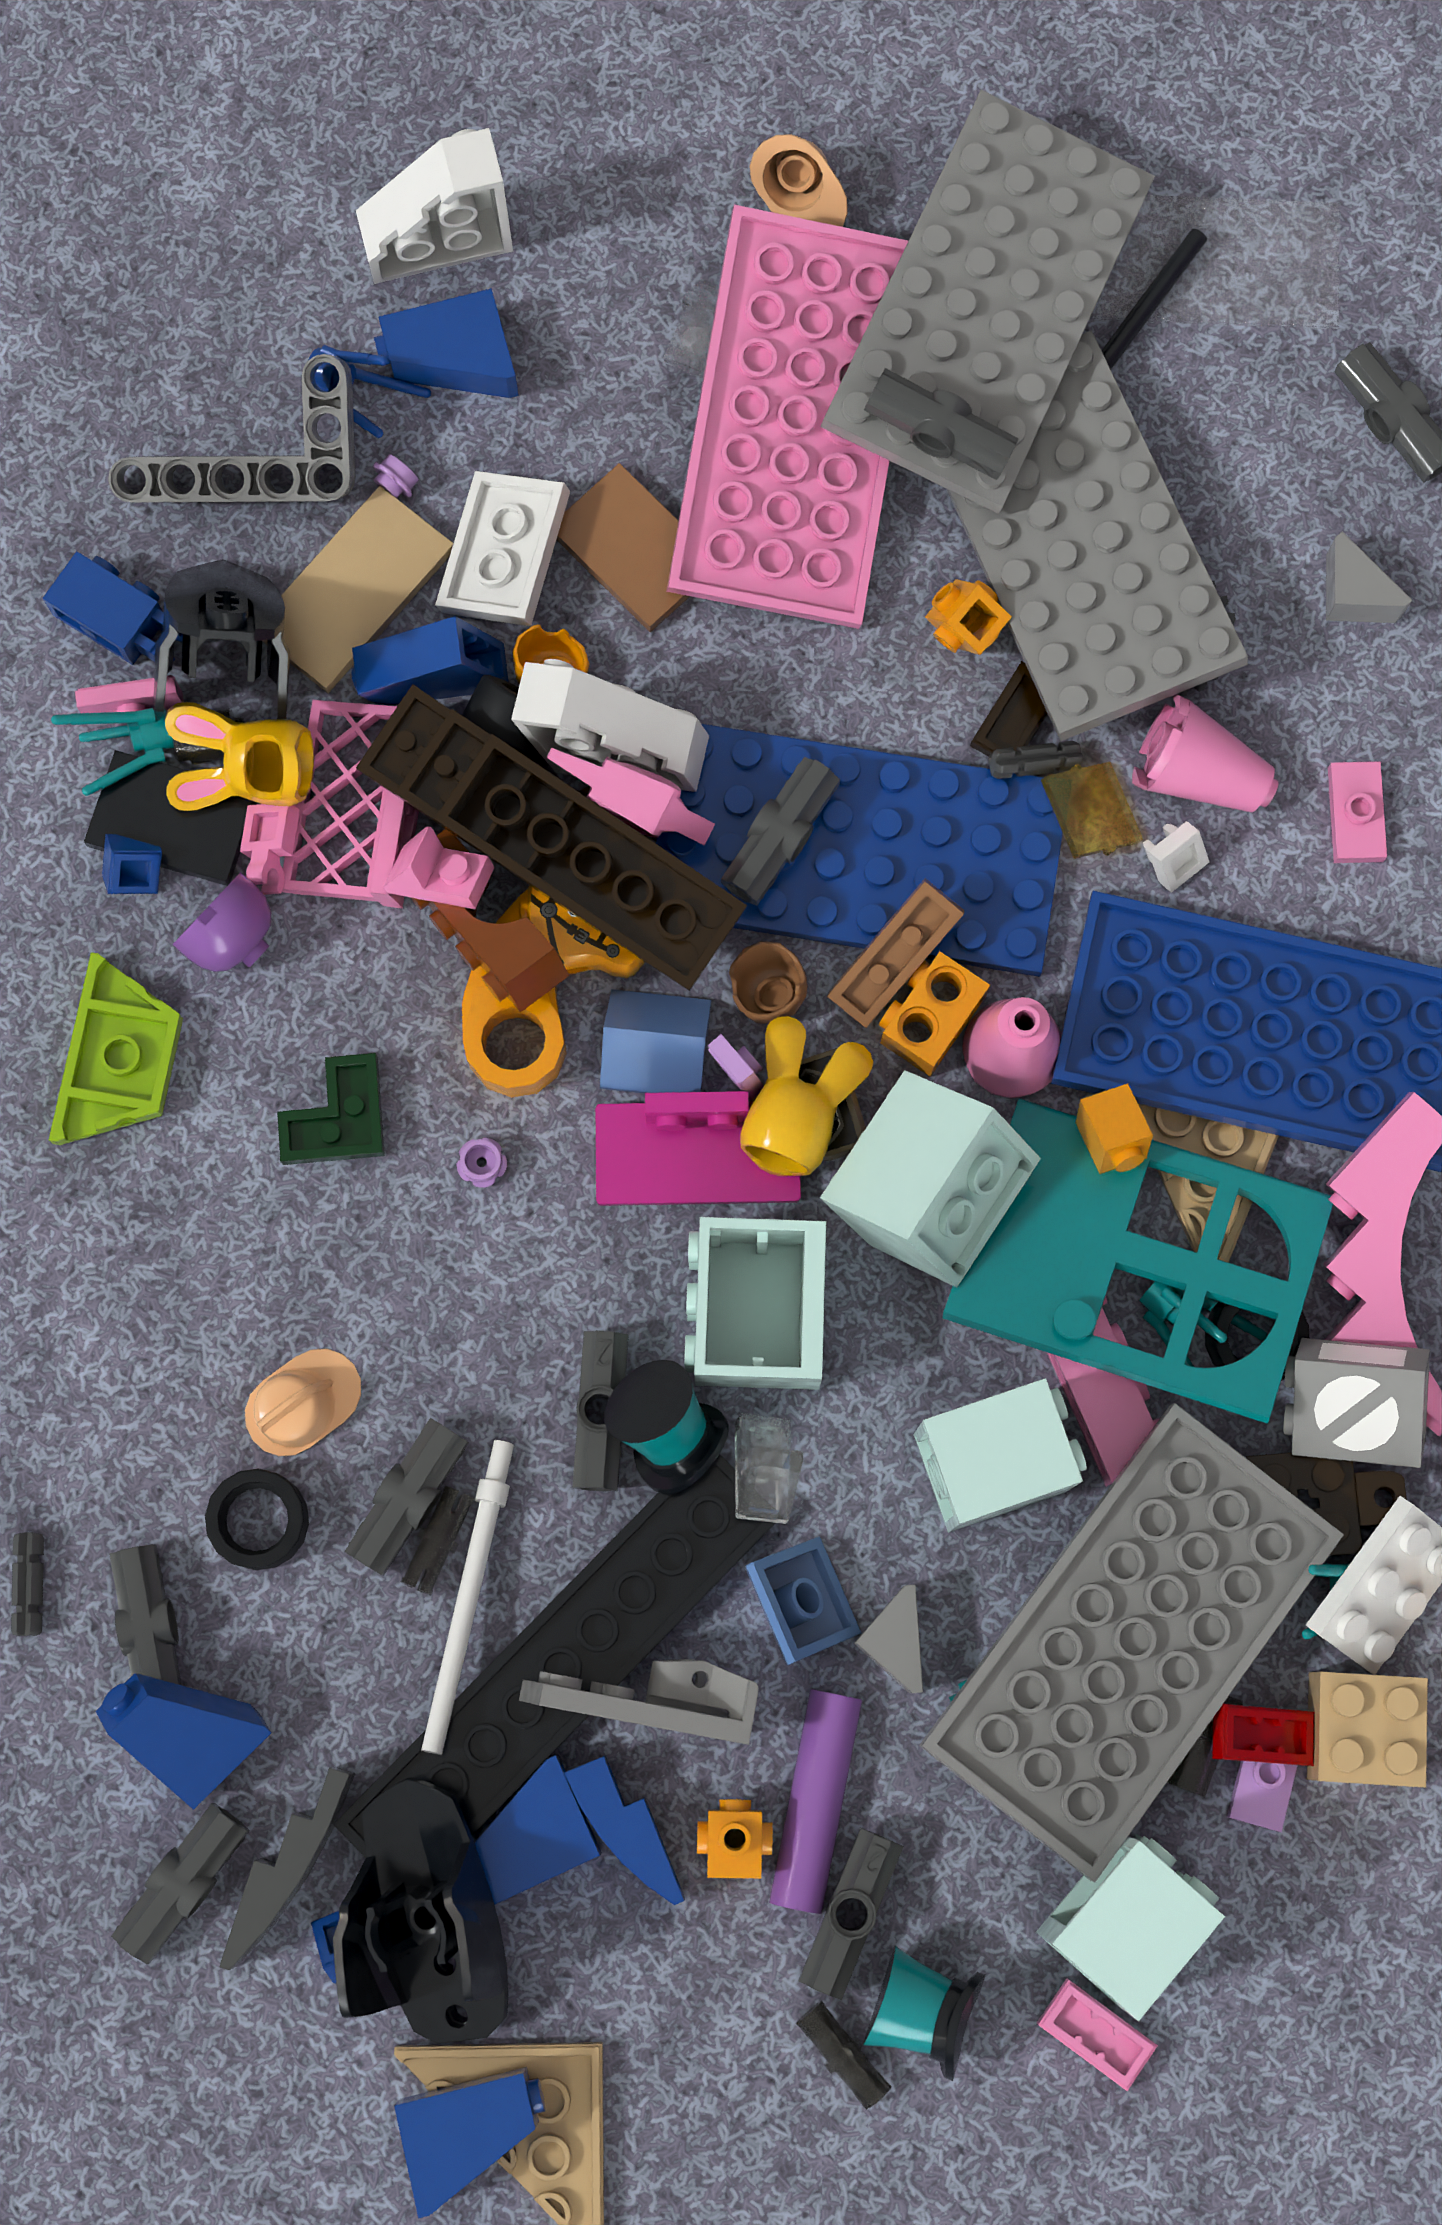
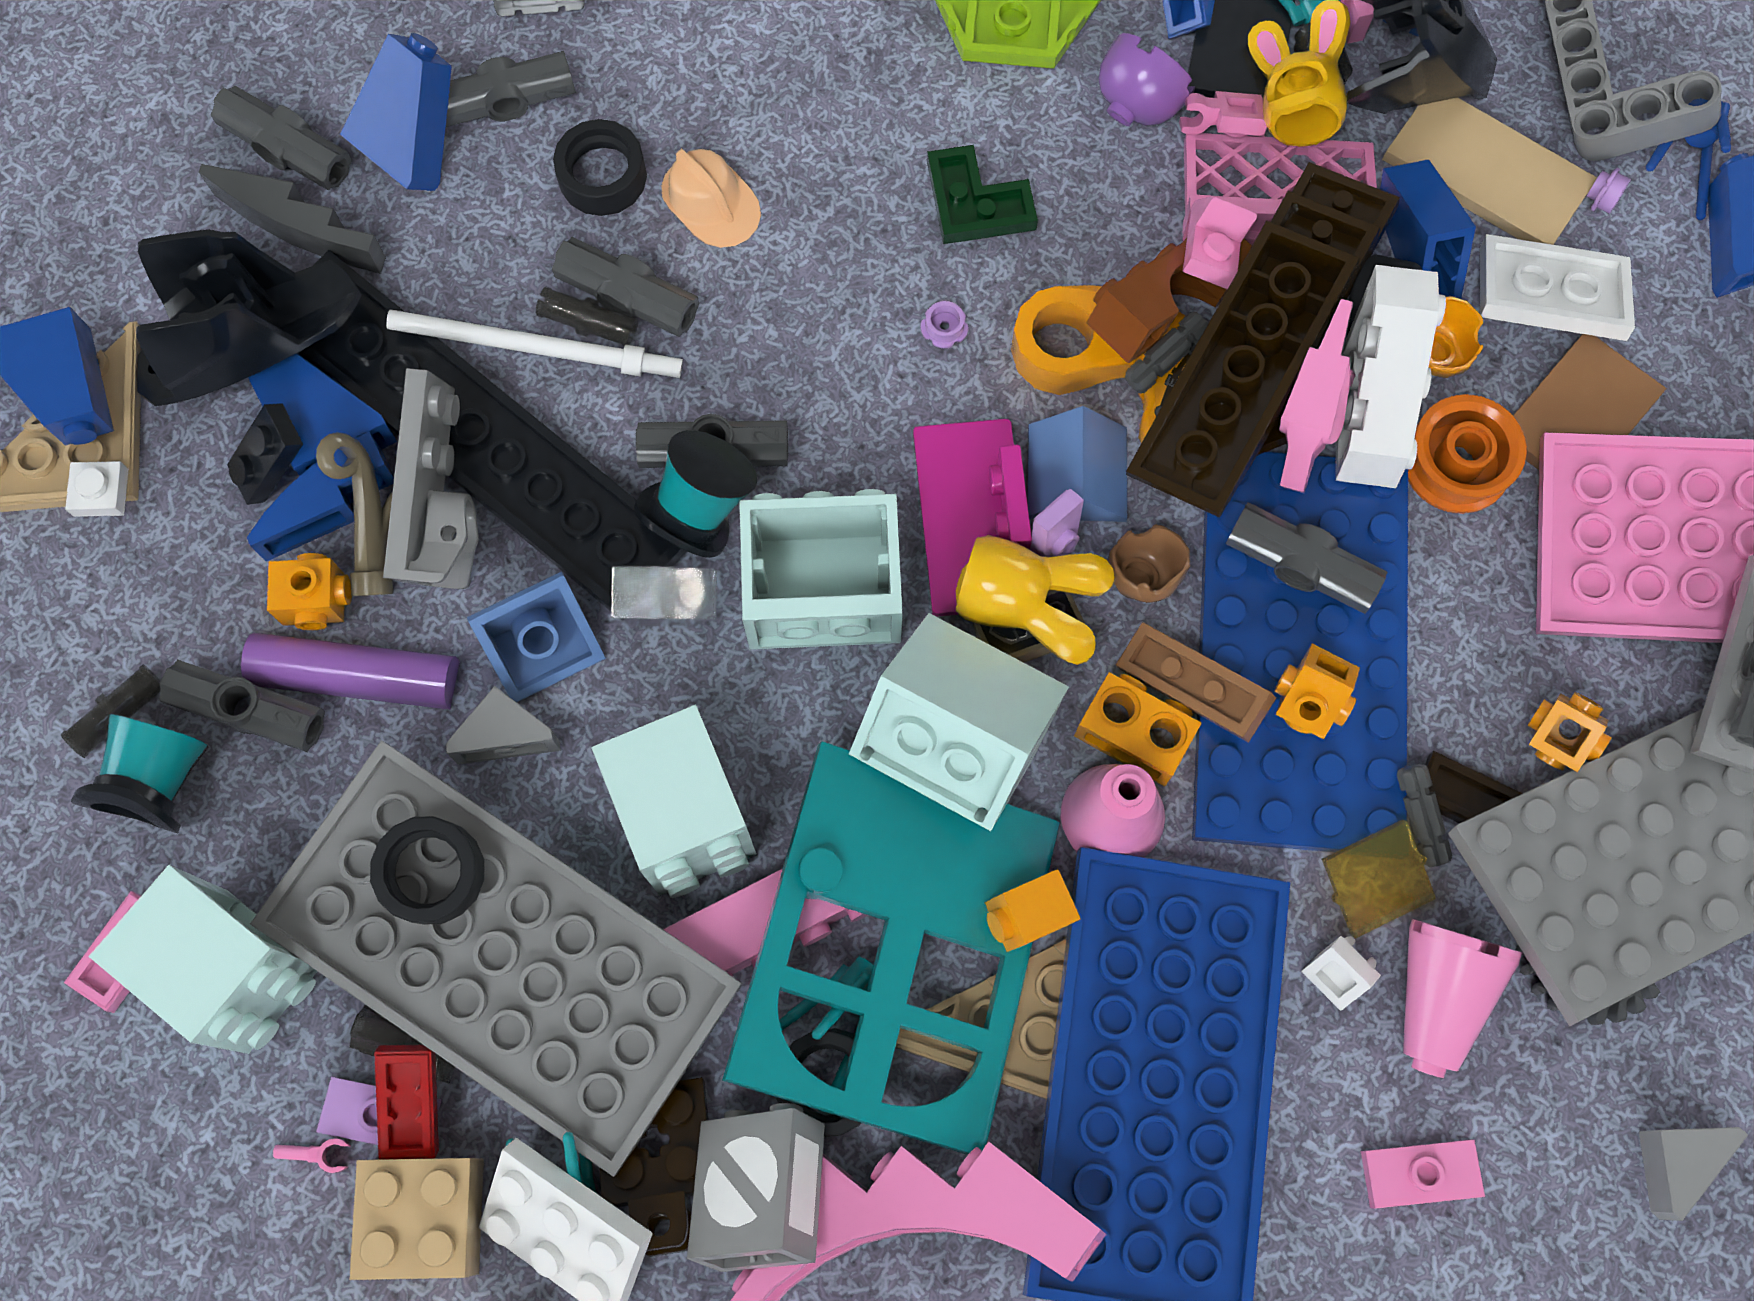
camera: 85 degrees right, 5 degrees down
(549, 924) = (1166, 353): none -> dark grey axle
(578, 1889) = (264, 453): none -> black plate
(597, 2079) = (97, 489): none -> white plate
(684, 635) = (1484, 432): none -> orange wheel
(719, 1777) = (370, 520): none -> dark tan plant
(921, 839) = (1317, 692): none -> light orange brick
(1101, 1696) = (396, 841): none -> black tyre
(1300, 1835) = (312, 1154): none -> bright pink hand

